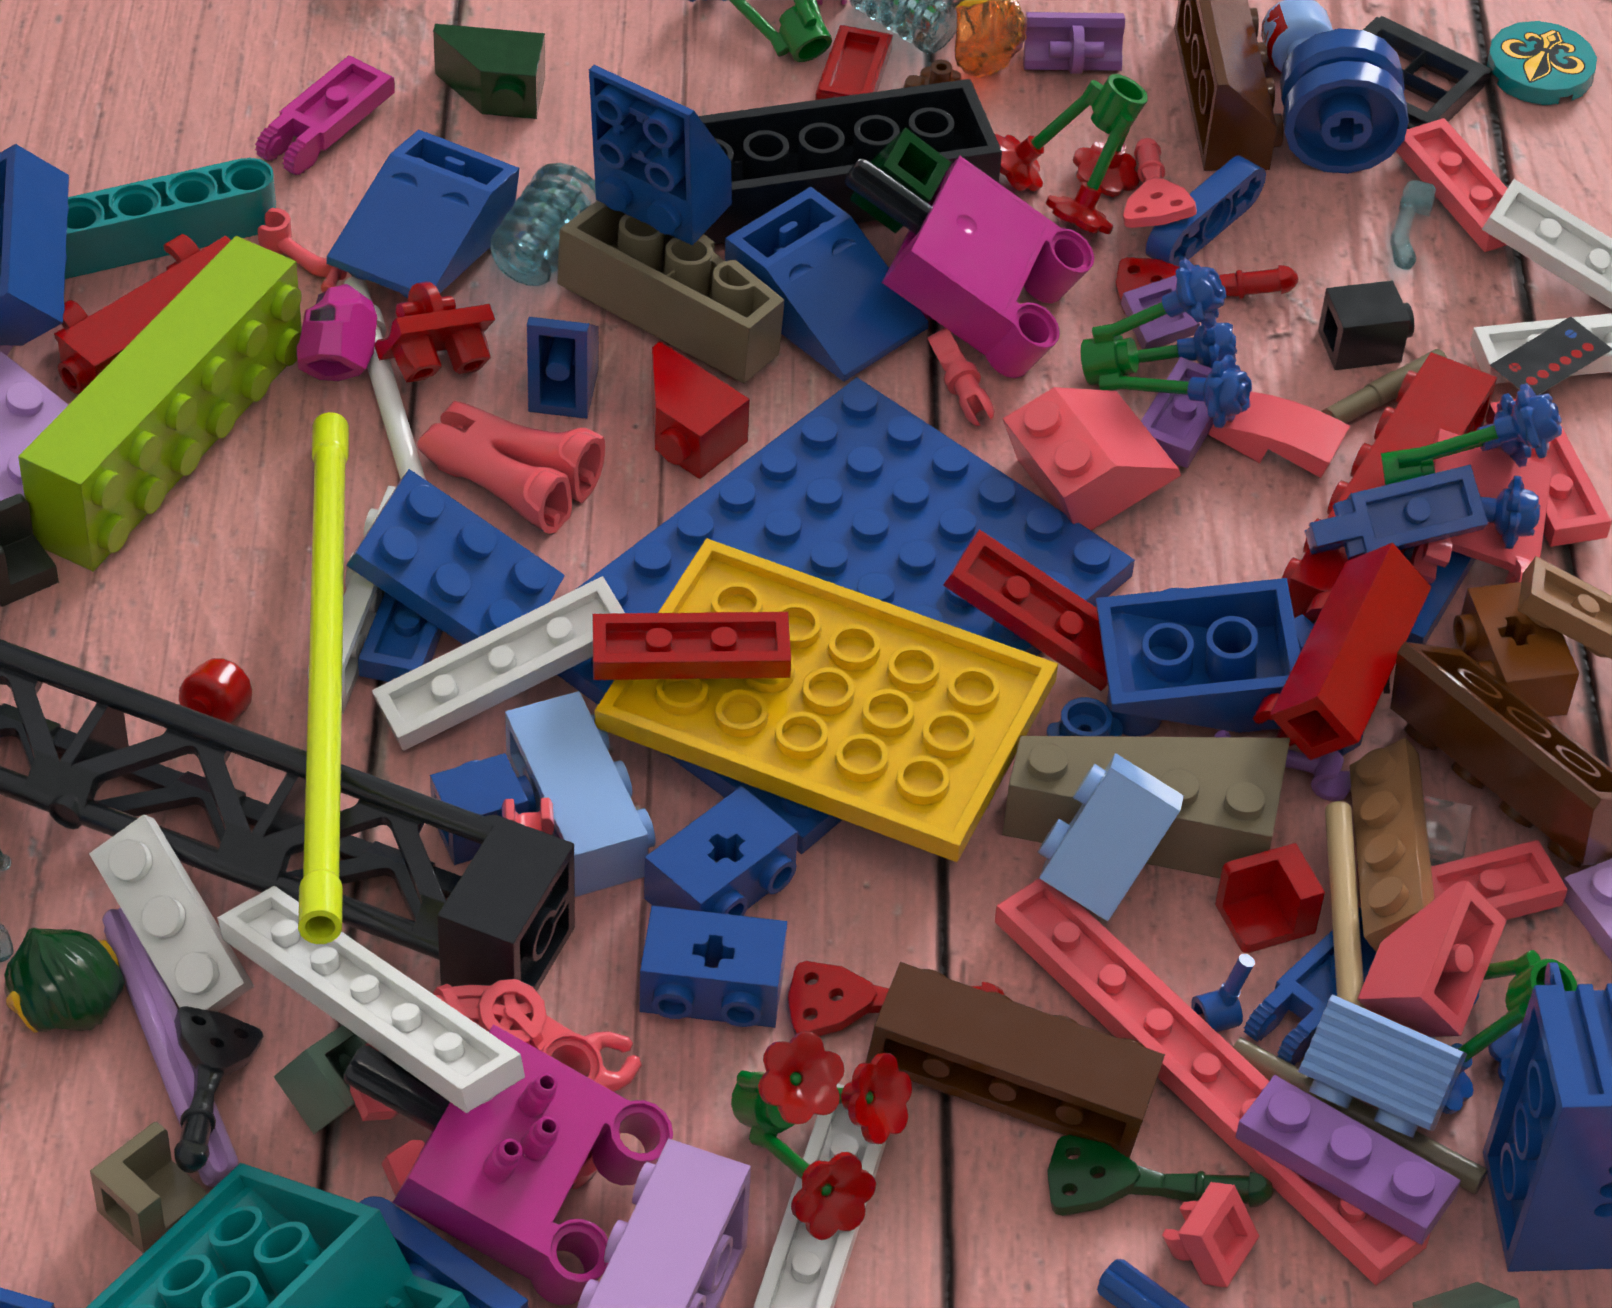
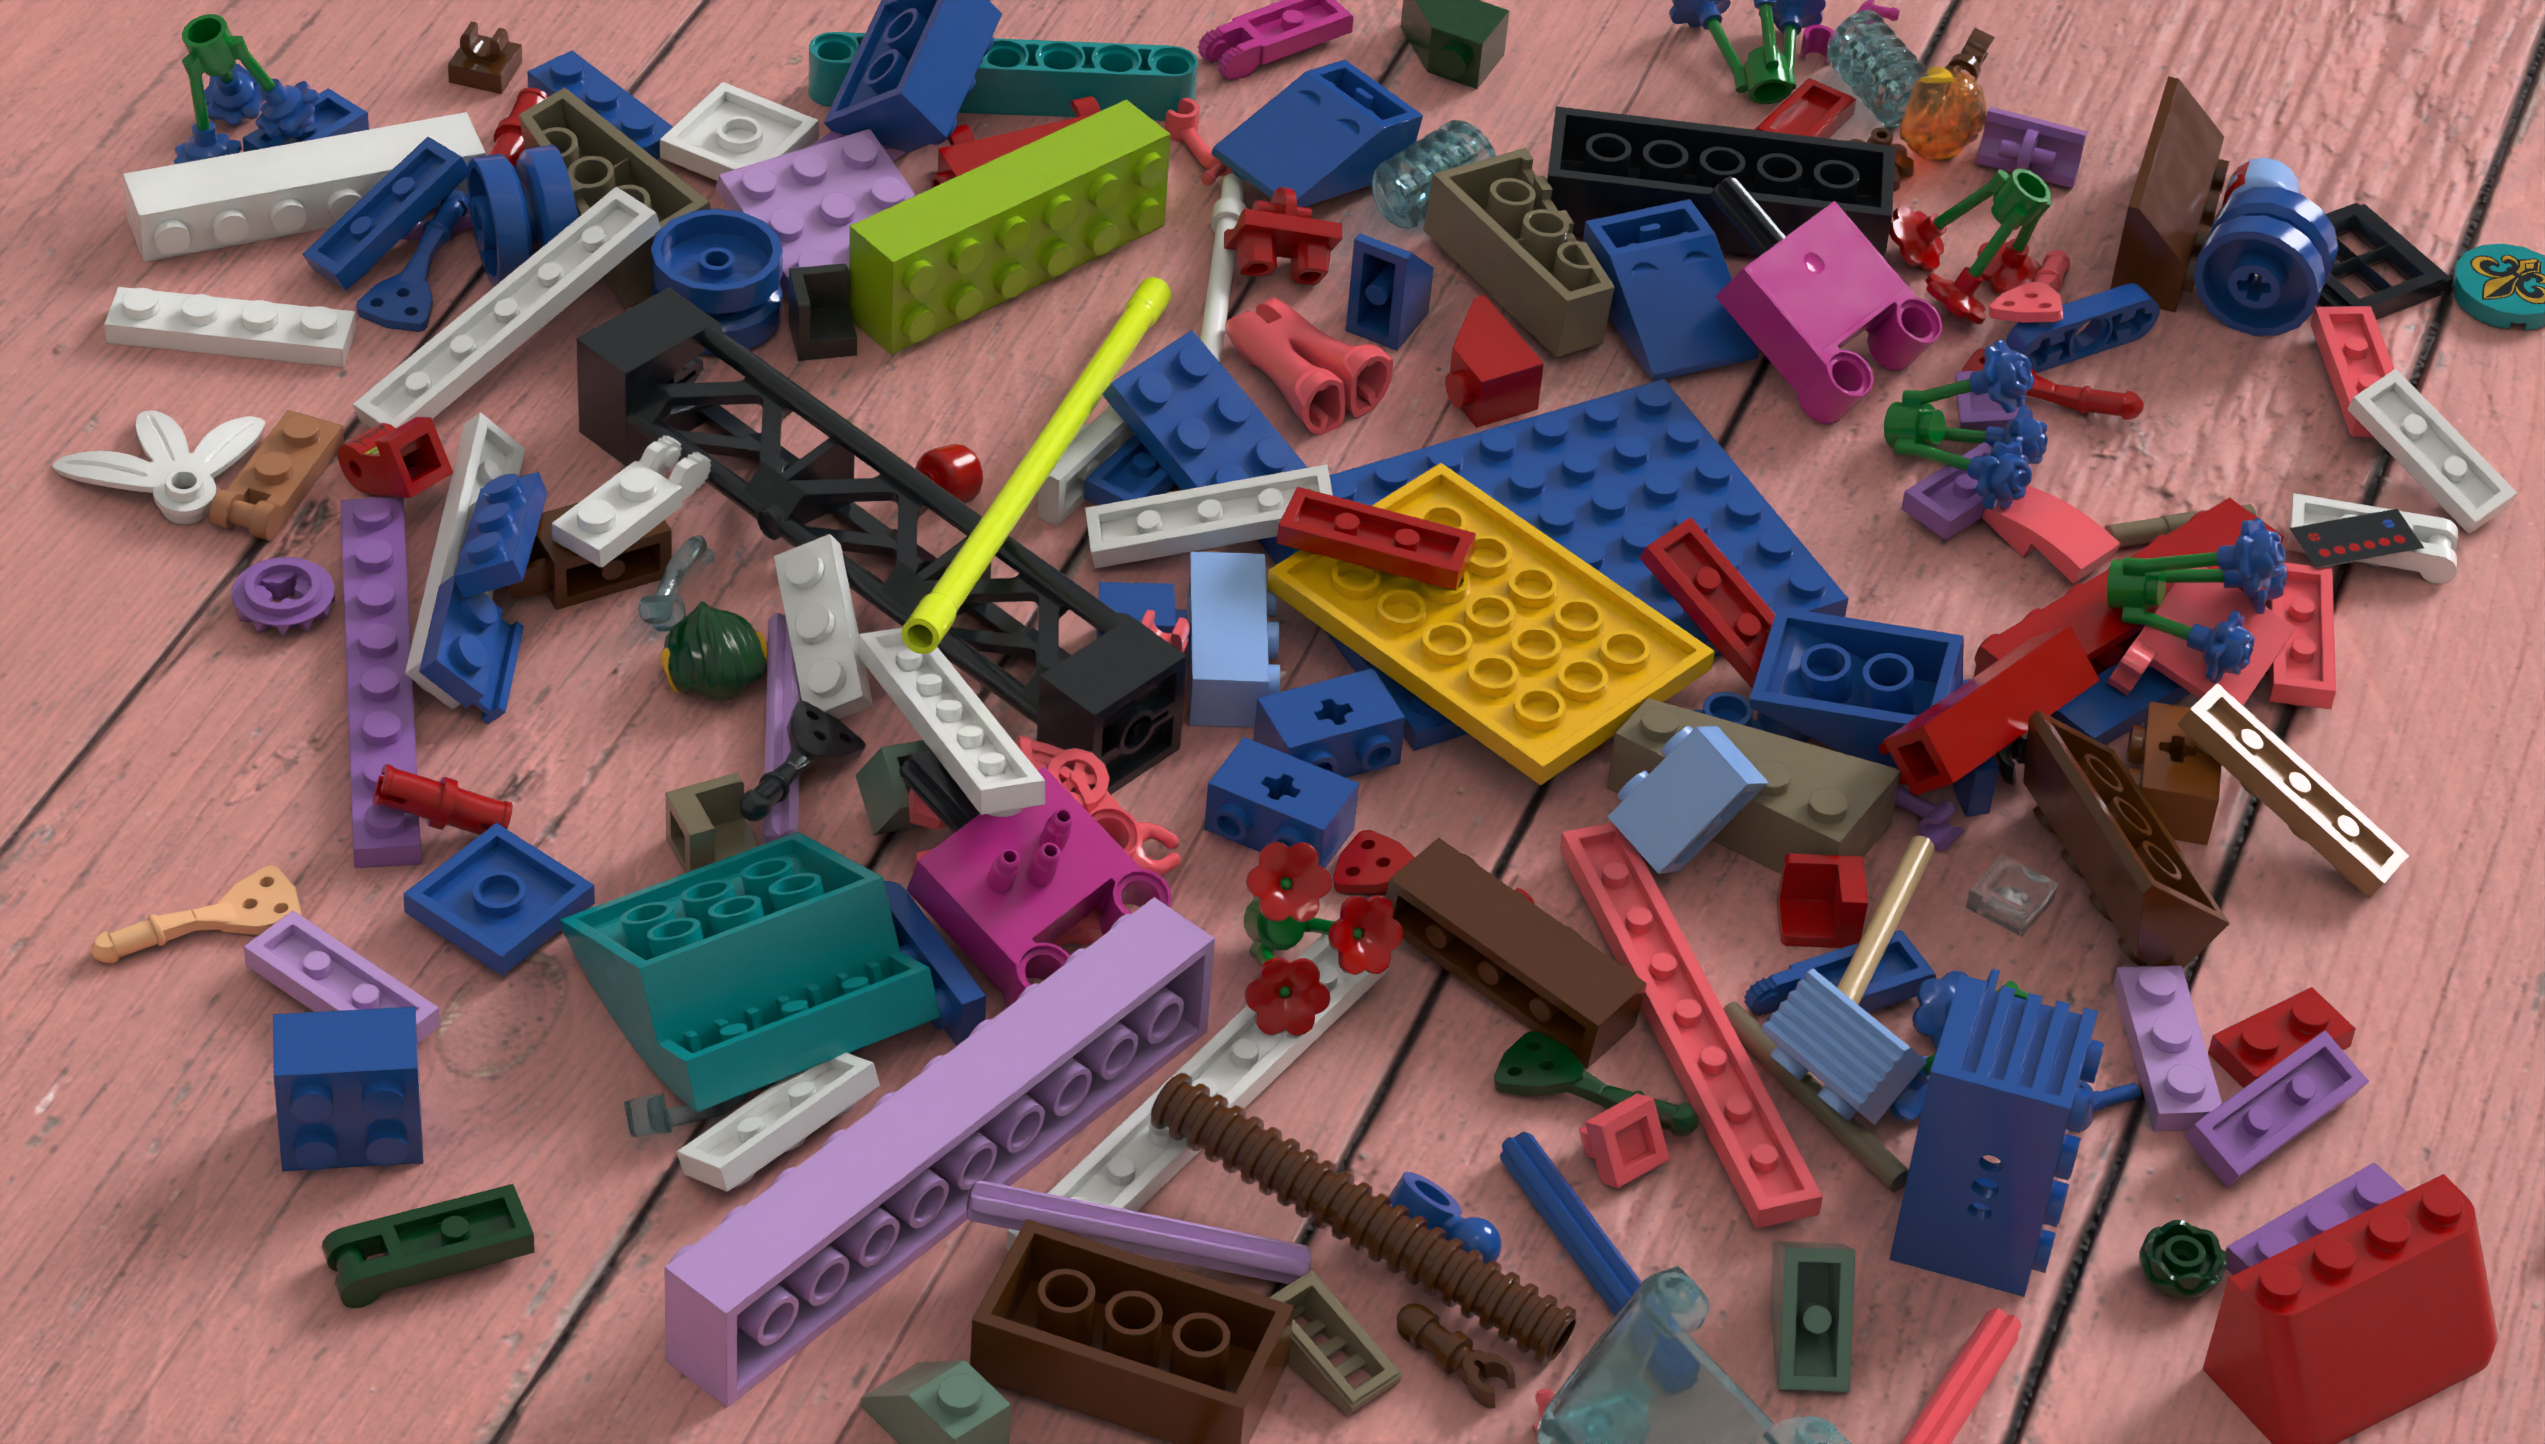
camera: 20 degrees right, 5 degrees down
(337, 335) = (1192, 215): dark pink rock -> none
(655, 159) = (1538, 129): blue slope -> none
(910, 164) = (1785, 200): dark green brick -> none
(961, 376) = (1765, 405): coral piece -> none
(1088, 453) = (1848, 494): coral slope -> none
(1222, 1006) = (1730, 975): blue hand -> none
(1348, 1159) = (1774, 1115): medium lavender plate -> none
(1365, 325) = (2187, 464): black brick -> none
(1390, 839) = (1956, 886): medium nougat plate -> none
(1402, 513) = (2109, 614): blue hinge -> none
(1416, 198) = (2303, 370): clear light blue piece -> none
(1435, 963) = (1917, 981): coral slope -> none
(1511, 879) = (2042, 954): coral plate -> none

